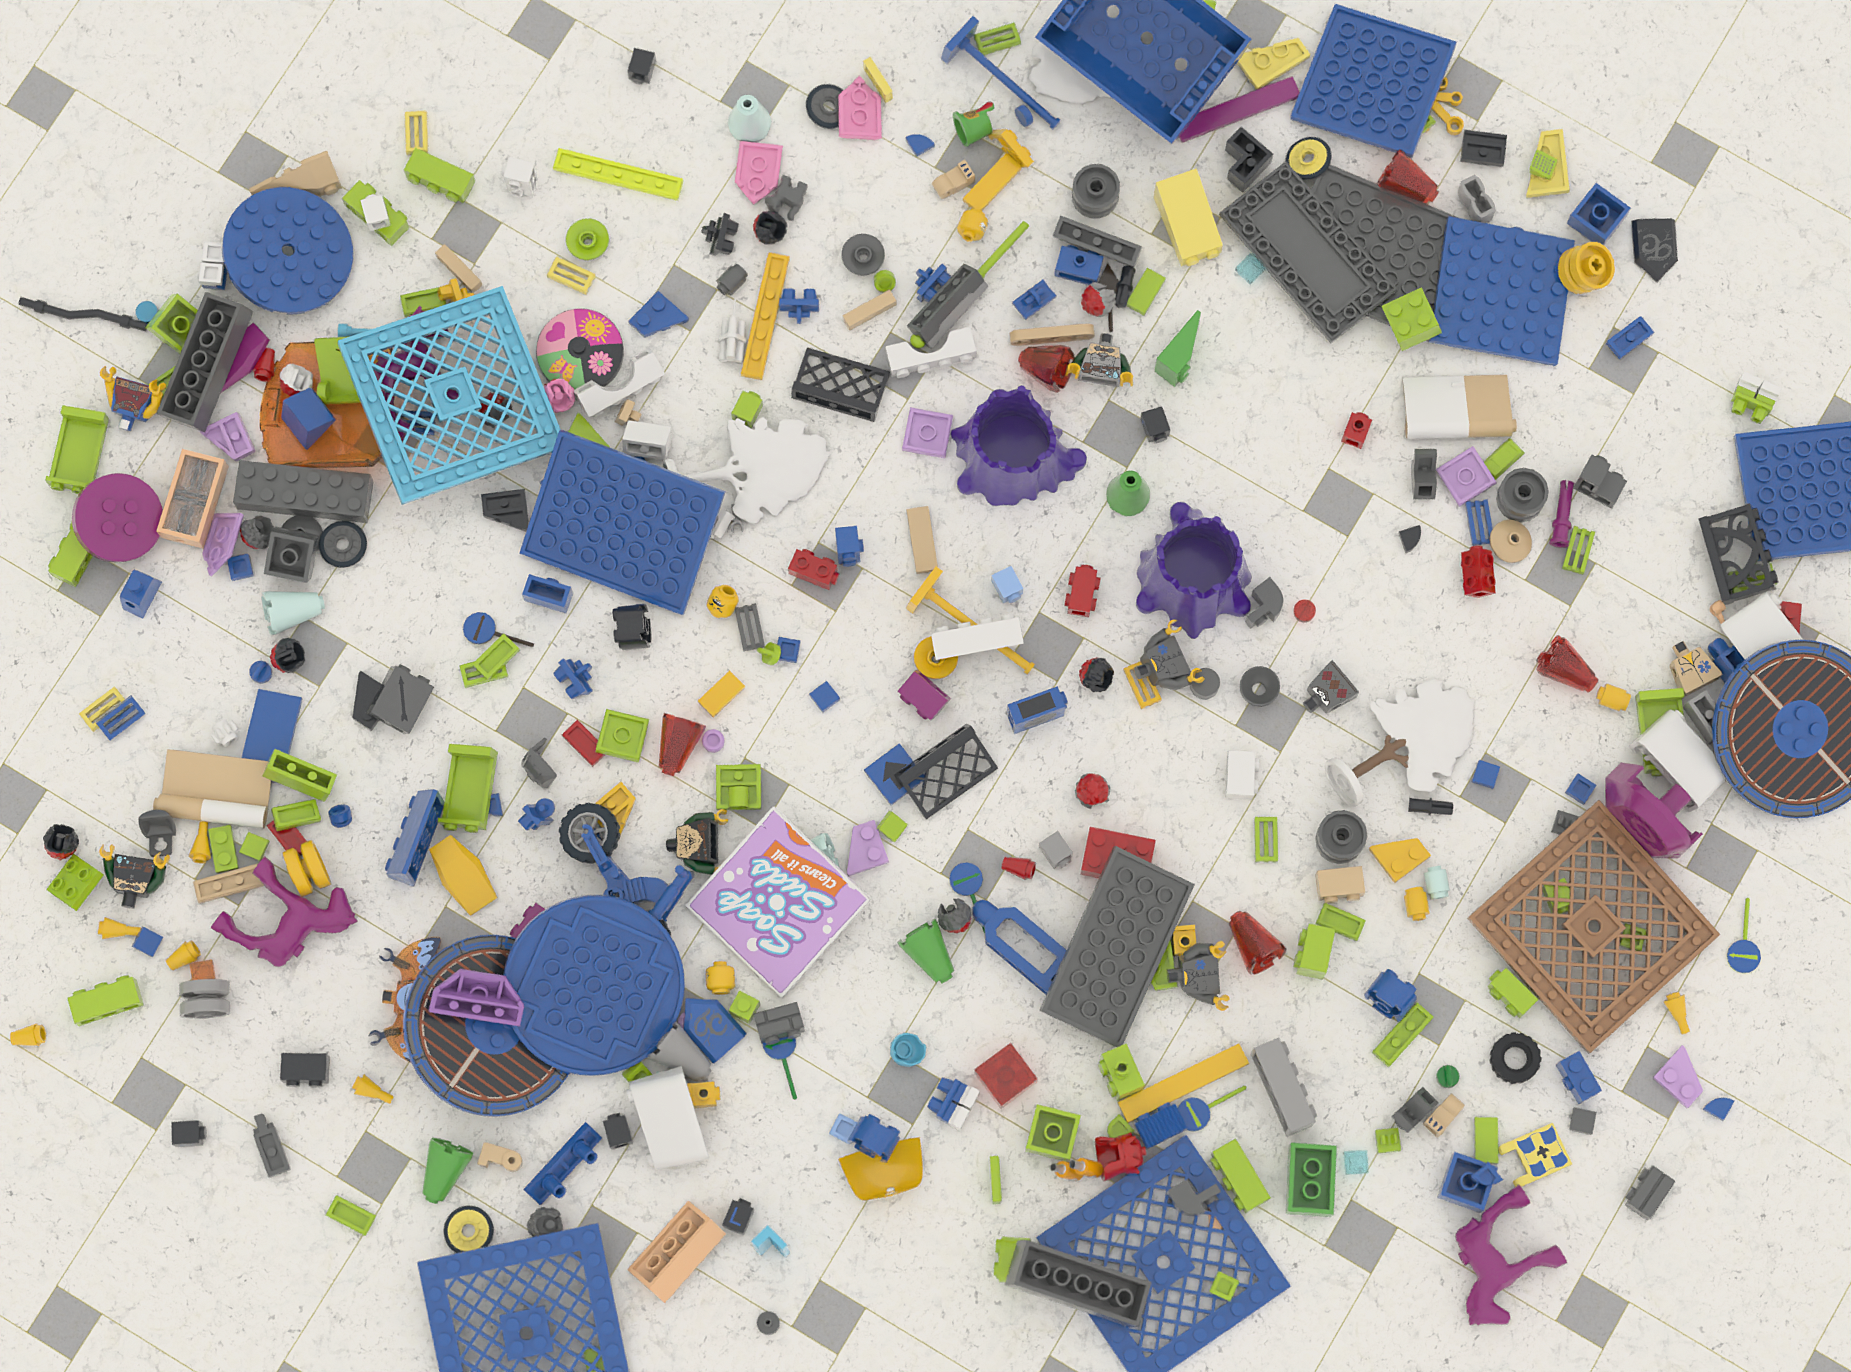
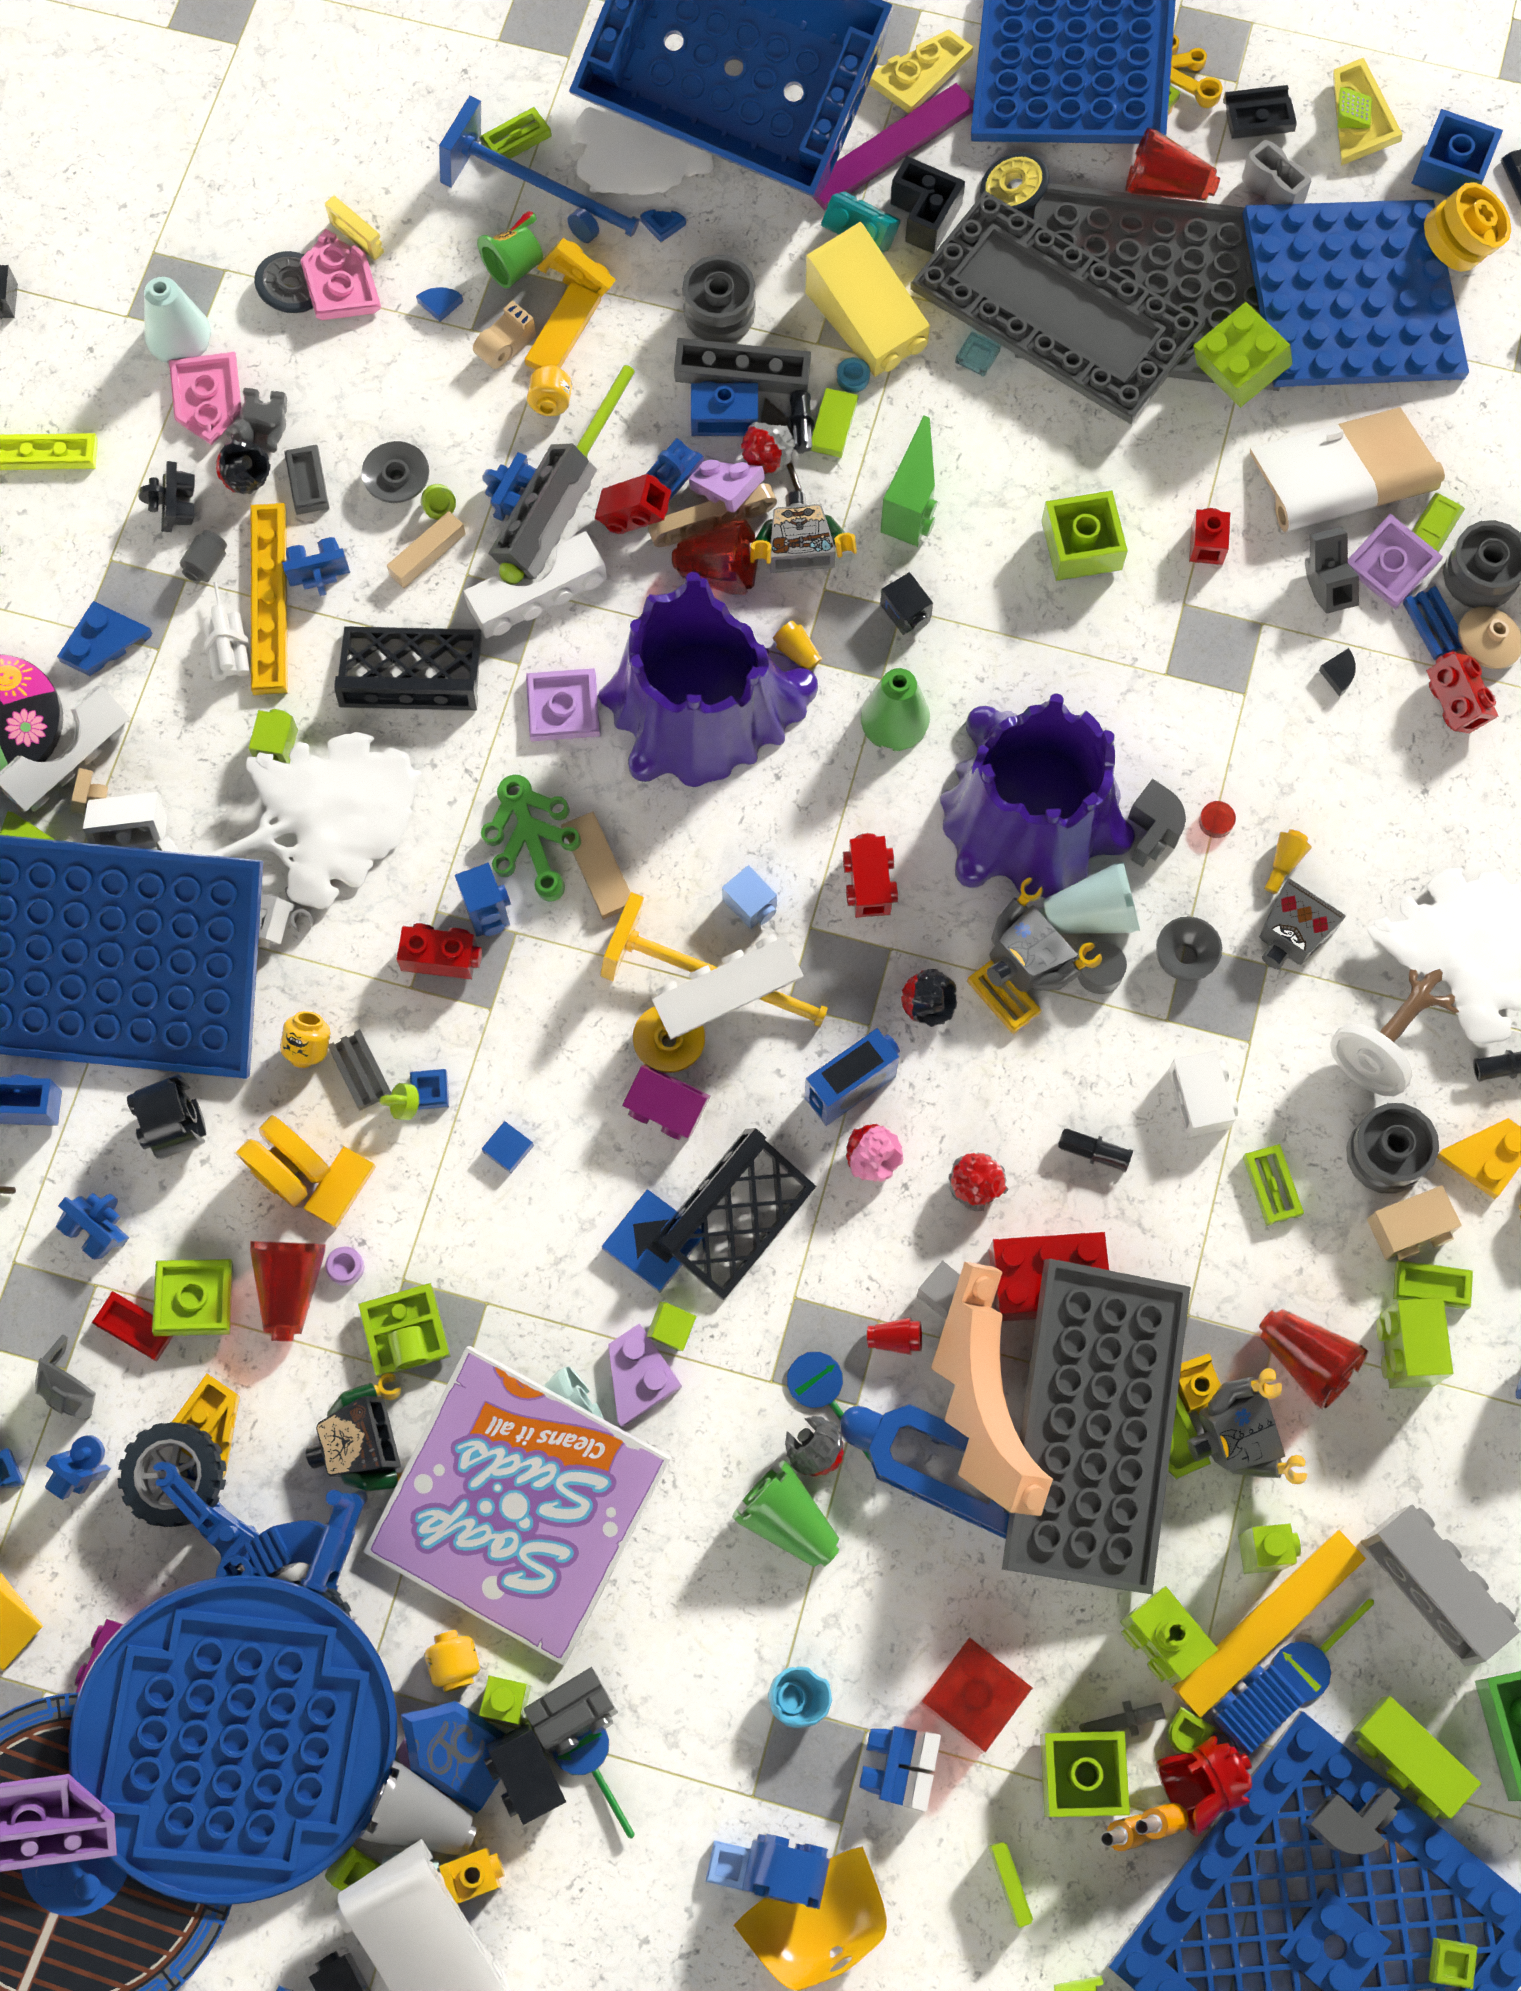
camera: 15 degrees left, 5 degrees down
(695, 669) = (279, 1165): none -> yellow wheel
(745, 1048) = (525, 1774): none -> black brick
(807, 243) = (306, 479): none -> dark grey tile
(885, 507) = (528, 830): none -> bright green plant
(1003, 317) = (633, 504): none -> red brick
(1036, 757) = (873, 1153): none -> bright pink piece
(1052, 920) = (978, 1409): none -> light nougat arch
(1065, 317) = (726, 482): none -> lavender wing
(1075, 125) = (662, 223): none -> blue tile
(1080, 433) = (797, 646): none -> yellow cone
(1089, 1112) = (1130, 1719): none -> dark grey piece
(1167, 262) = (853, 374): none -> dark azure tile
(1167, 790) = (1095, 1149): none -> black axle
(1194, 1041) = (1269, 1548): none -> lime brick
(1196, 155) = (846, 211): none -> teal brick
(1212, 645) = (1094, 905): none -> light aqua cone
(1277, 410) = (1084, 535): none -> lime brick
(1340, 643) = (1289, 852): none -> yellow cone

